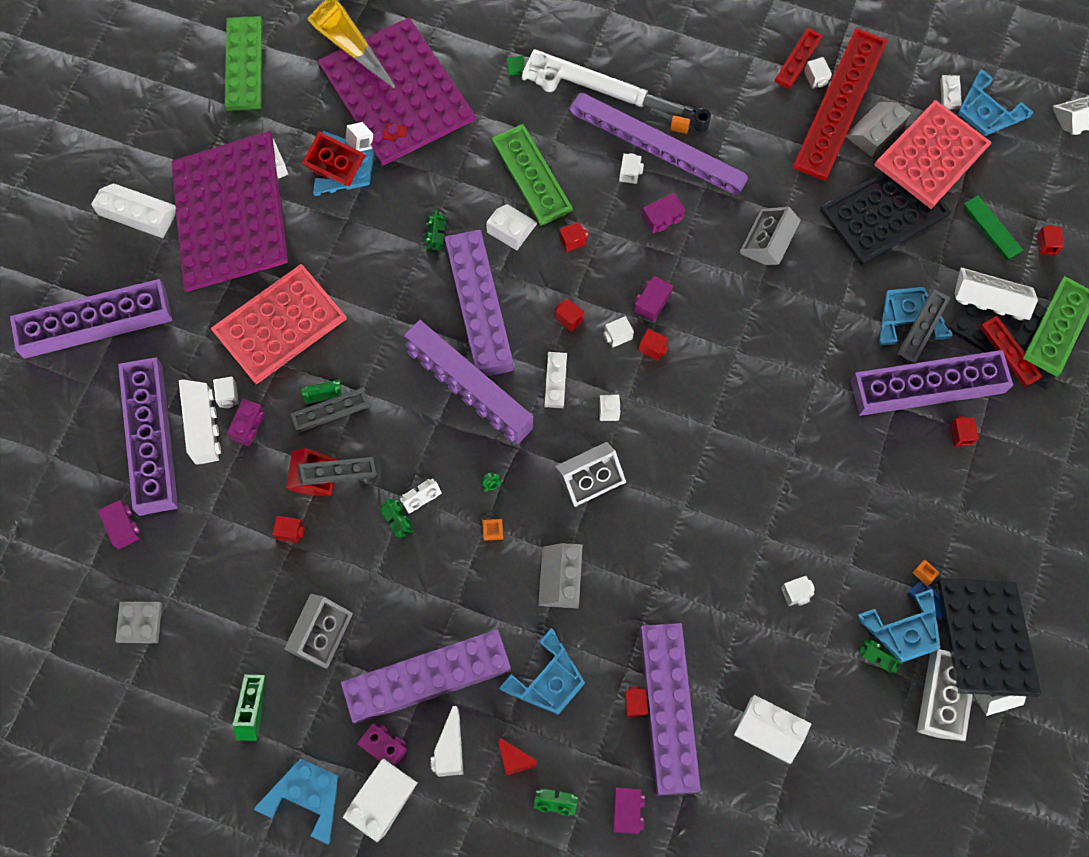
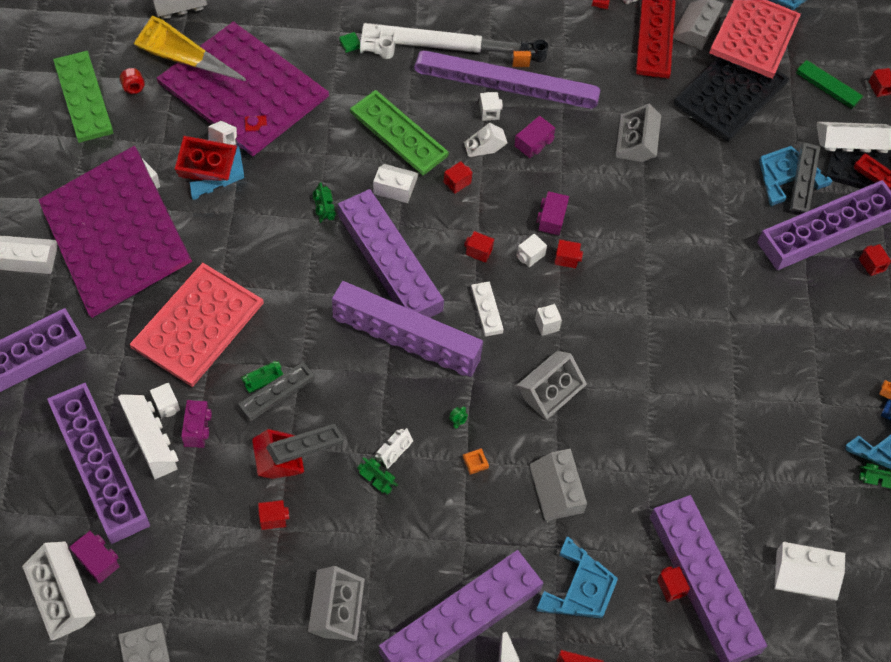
camera: 20 degrees left, 10 degrees down
(80, 545) = (58, 589): none -> white slope
(292, 59) = (132, 81): none -> red head
(613, 205) = (485, 141): none -> white slope
(798, 591) = (783, 438): white brick -> none

